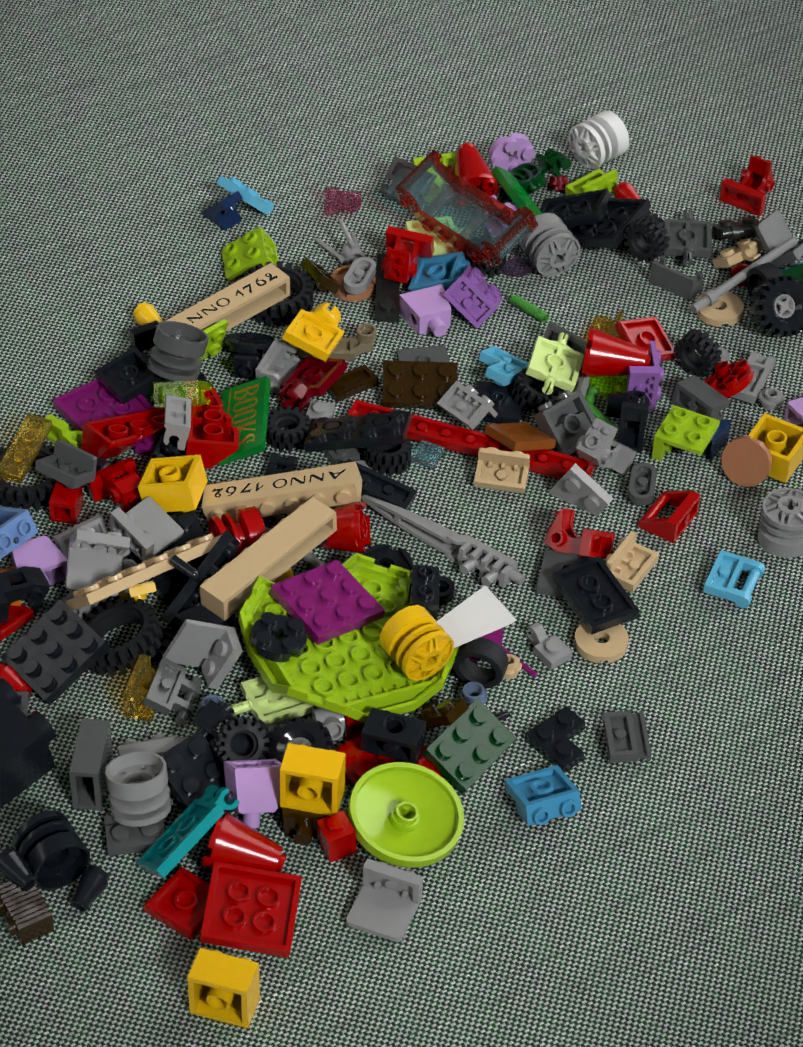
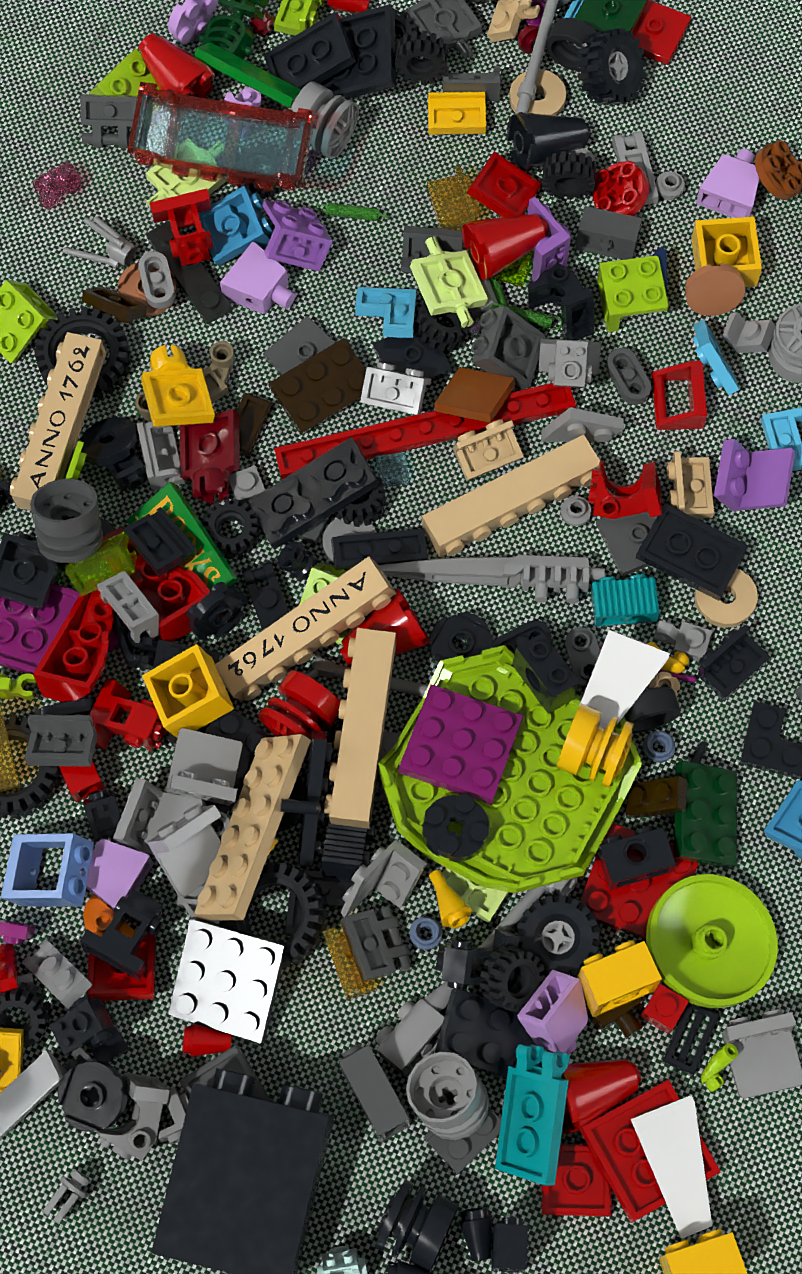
camera: 30 degrees left, 25 degrees up
(58, 523) = (102, 813): none -> black bracket
(101, 899) = (510, 1246): none -> black brick
(229, 401) = (159, 541): none -> black plate
(230, 447) = (217, 611): none -> black plate
(239, 694) = (452, 908): none -> yellow cone
(265, 920) = (675, 1156): none -> white sticker
(313, 460) = (297, 560): none -> black wheel
(343, 875) = (679, 1064): none -> black tile
(344, 894) = (720, 1060): none -> lime arm
(491, 504) = (510, 497): none -> tan brick
(521, 651) = (676, 663): none -> yellow arm
(524, 600) = (624, 600): none -> teal brick
(534, 538) = (575, 519): none -> light grey plate
(569, 673) = (732, 663): none -> black bracket
(651, 289) = (456, 113): none -> yellow plate
(675, 578) = (753, 478): none -> medium lavender bracket
(696, 316) = (543, 135): none -> black cone
(712, 491) = (709, 352): none -> medium azure plate
(747, 499) = (748, 335): none -> light grey bracket

